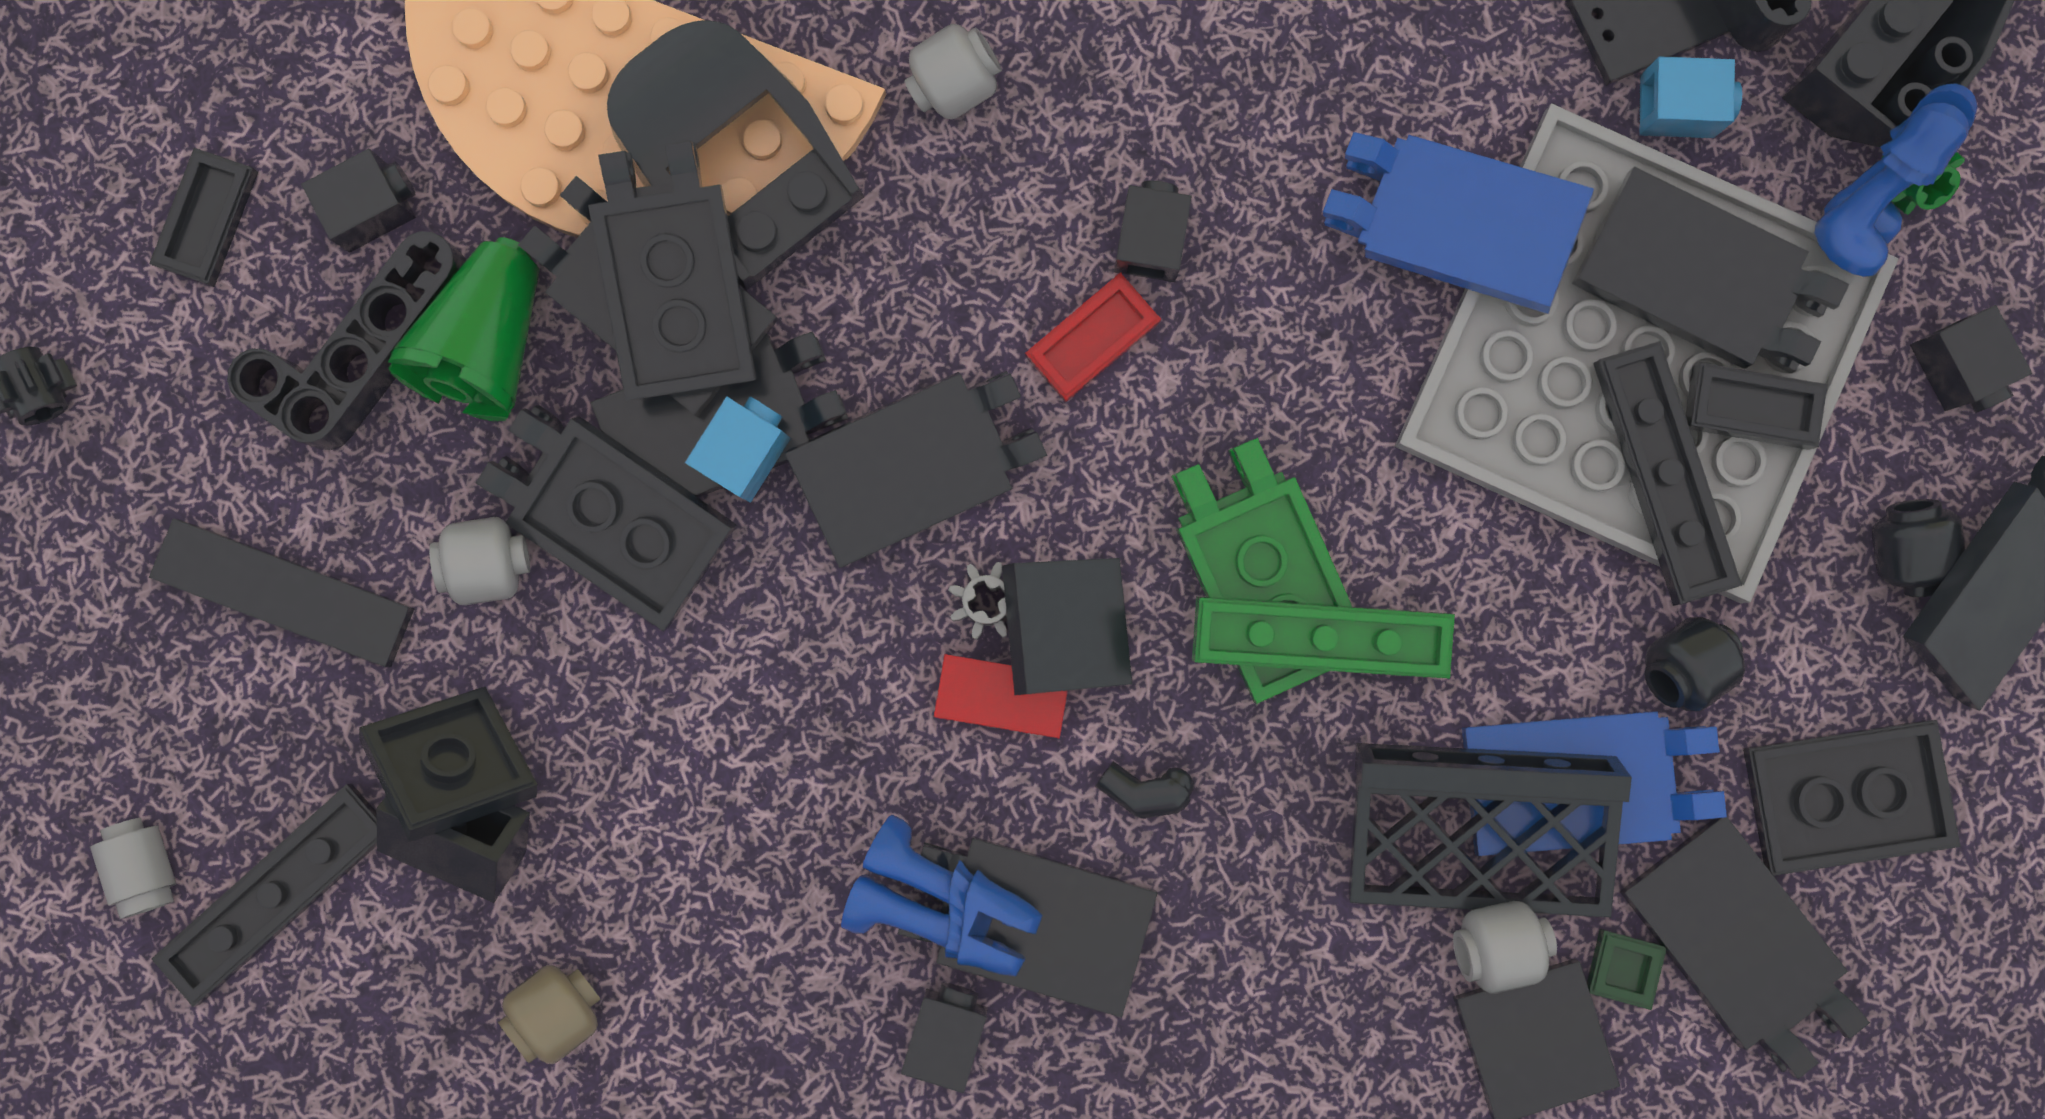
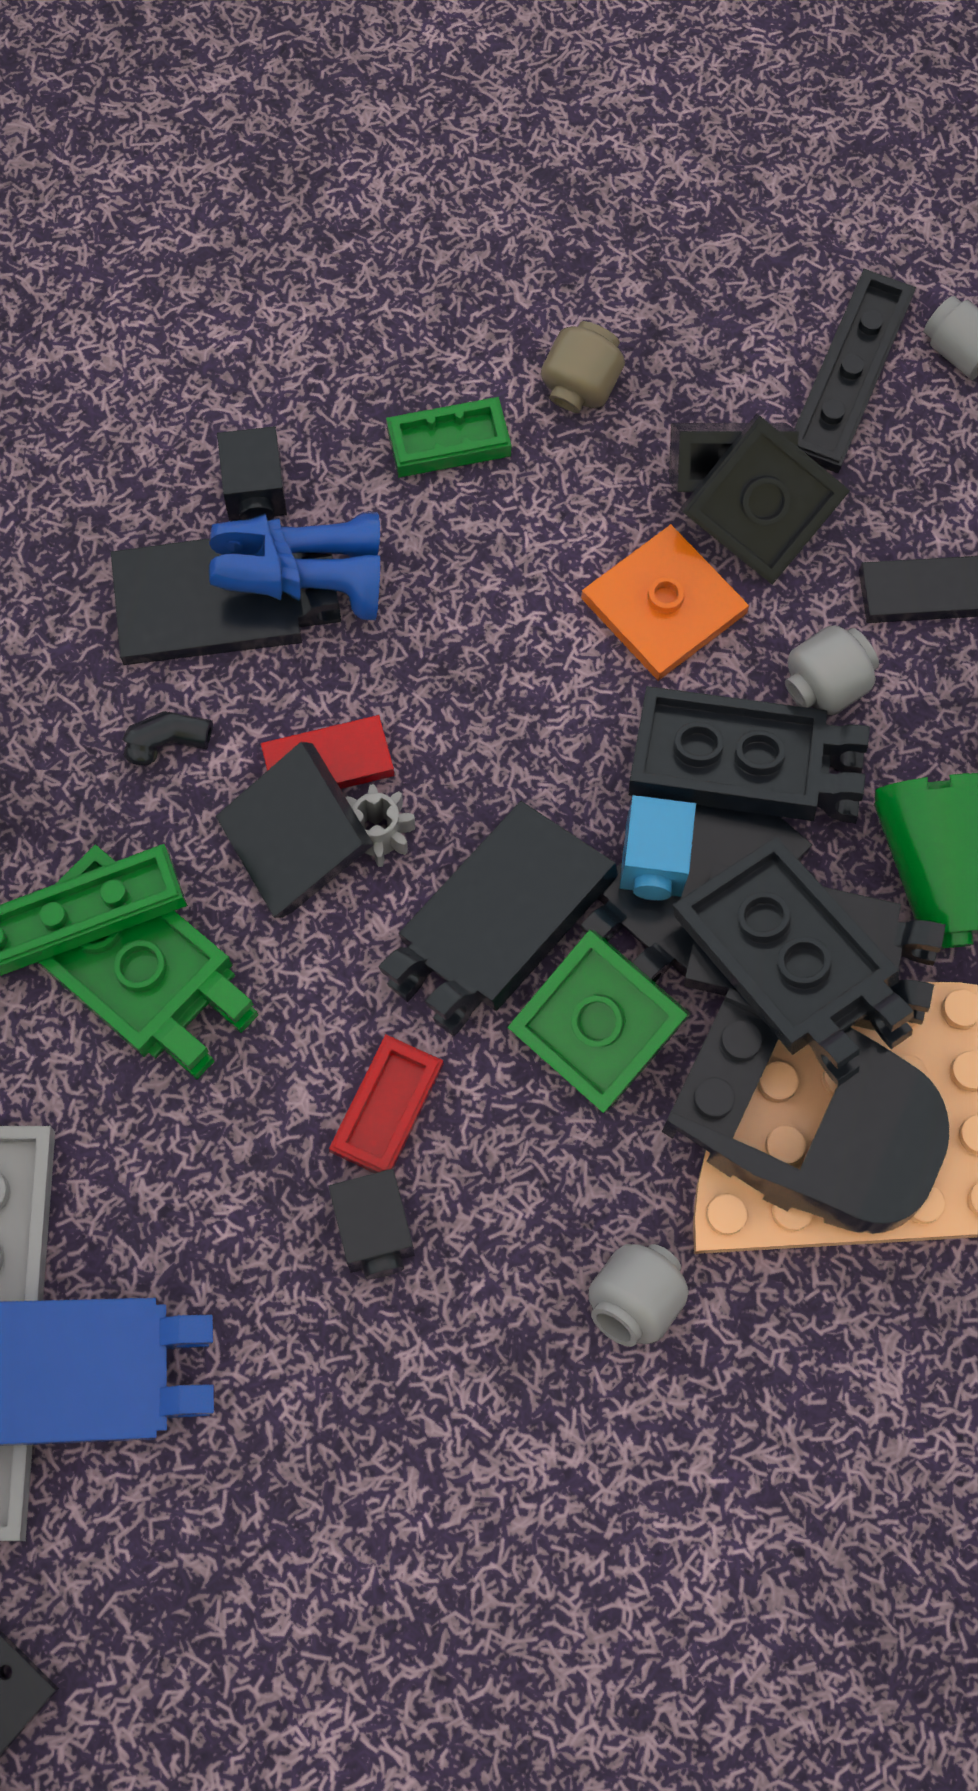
camera: 155 degrees right, 15 degrees down
(599, 716) = (664, 602): none -> orange plate
(725, 998) = (448, 437): none -> green plate
(870, 318) = (598, 1020): none -> green plate

